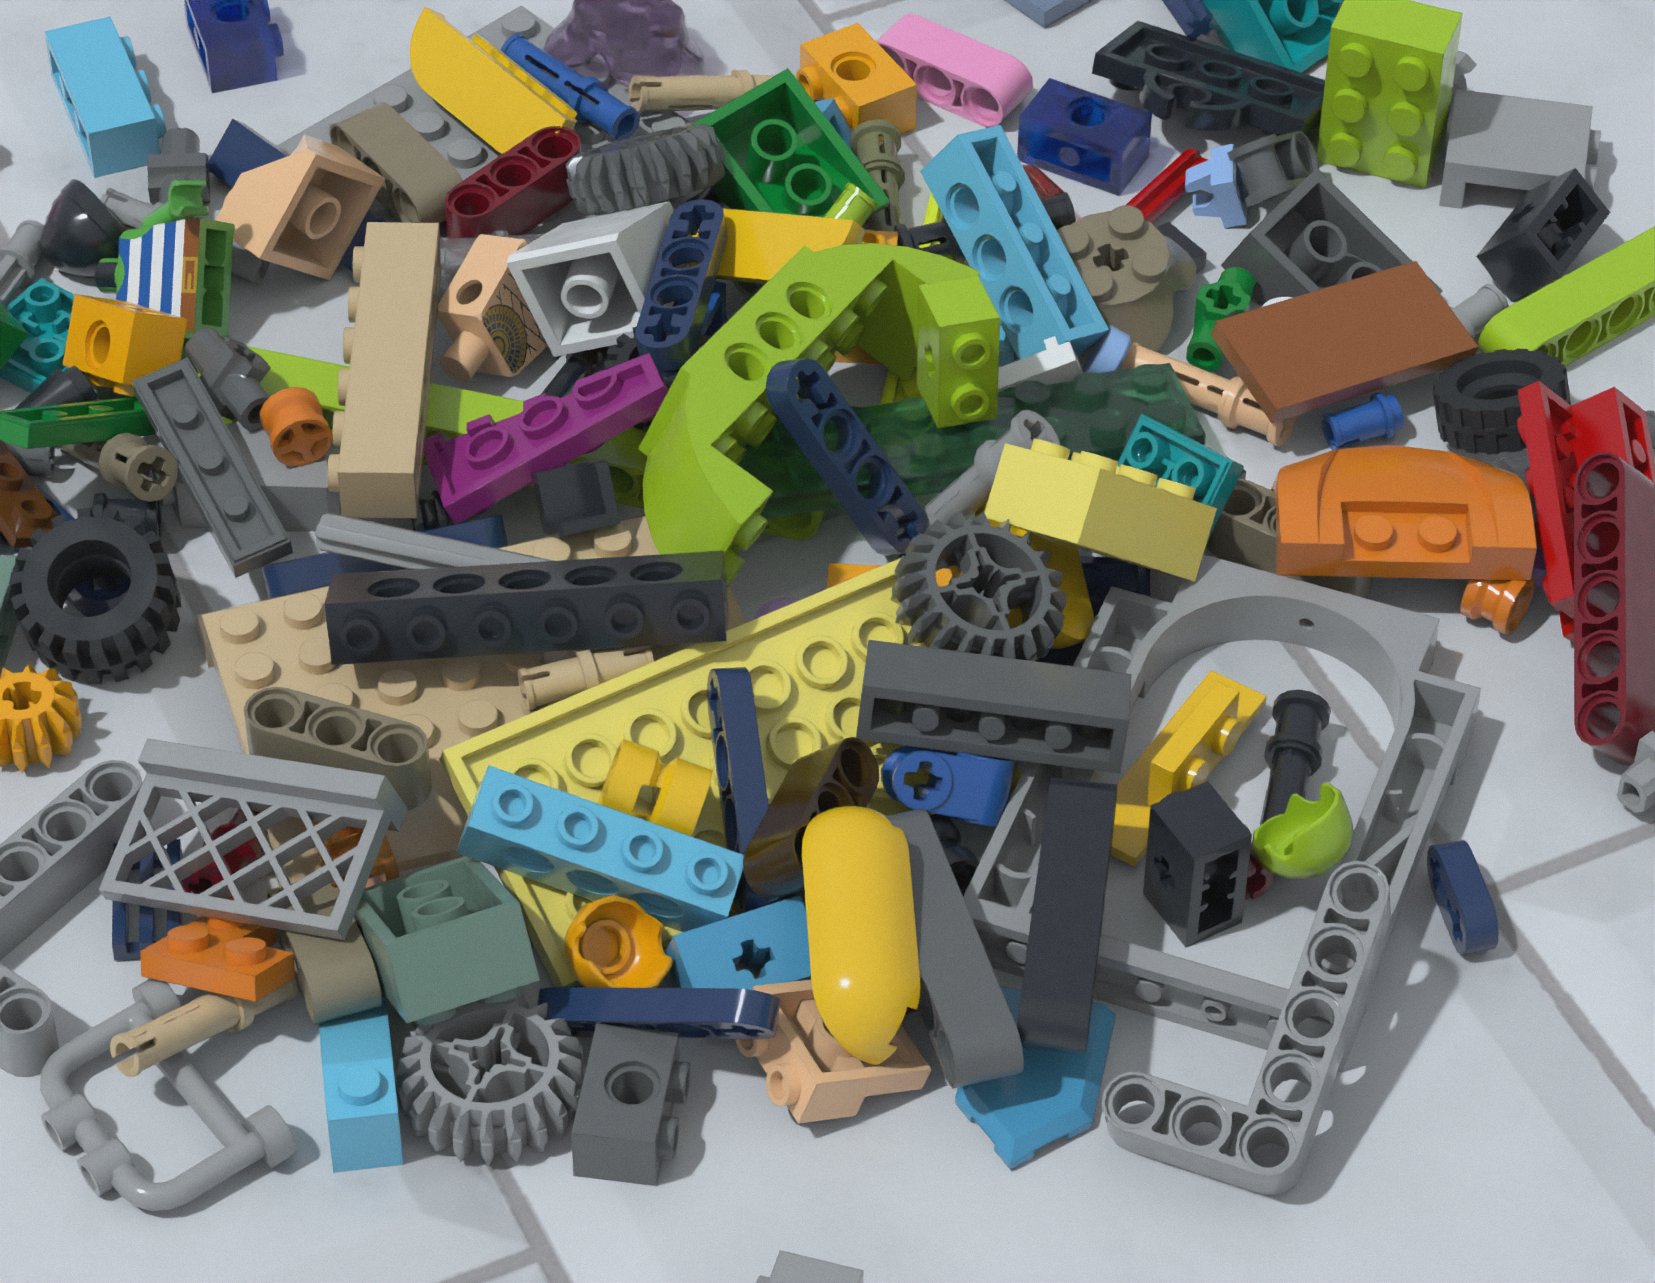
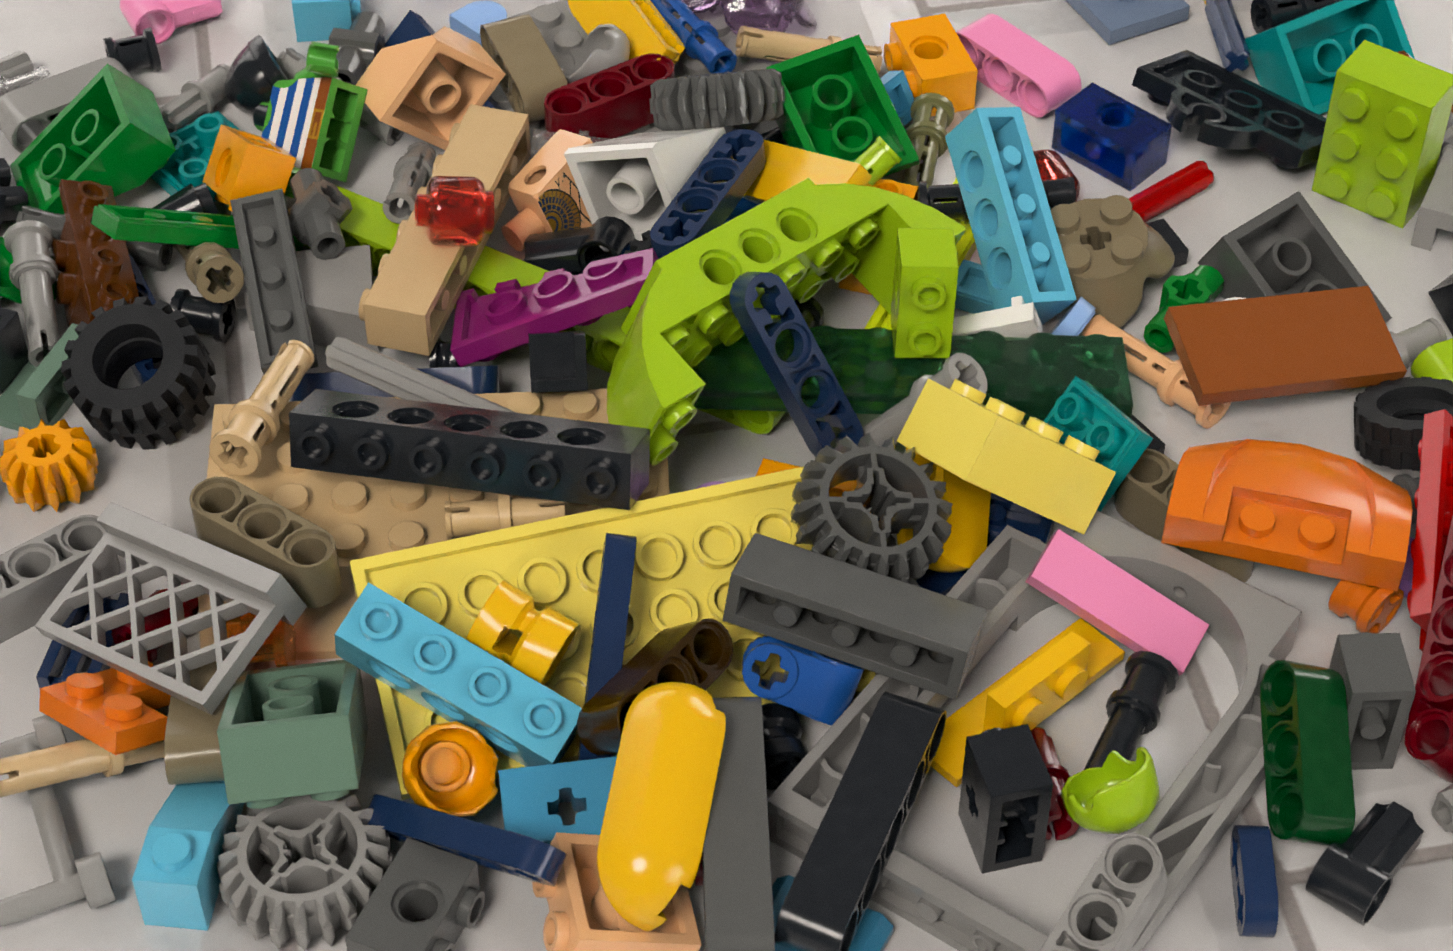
camera: 15 degrees right, 0 degrees up
(269, 621) = (256, 419): none -> tan pin
(296, 426) = (348, 274): orange wheel -> none
(313, 324) = (404, 171): none -> light grey pin
(315, 115) = (470, 18): none -> light blue tile
(410, 349) = (455, 211): none -> clear red head
(482, 136) = (600, 50): none -> light grey hair
(539, 367) = (578, 247): none -> black piece
(1223, 185) = (1221, 195): light blue tile -> none
(1245, 643) = (1116, 601): none -> bright pink tile
(1274, 165) = (1265, 182): dark grey piece -> none
(1363, 422) = (1286, 419): blue pin -> none
(1486, 759) = (1307, 753): none -> dark green beam
(1528, 697) = (1377, 695): none -> dark grey brick
(1565, 863) = (1362, 869): none -> black piece

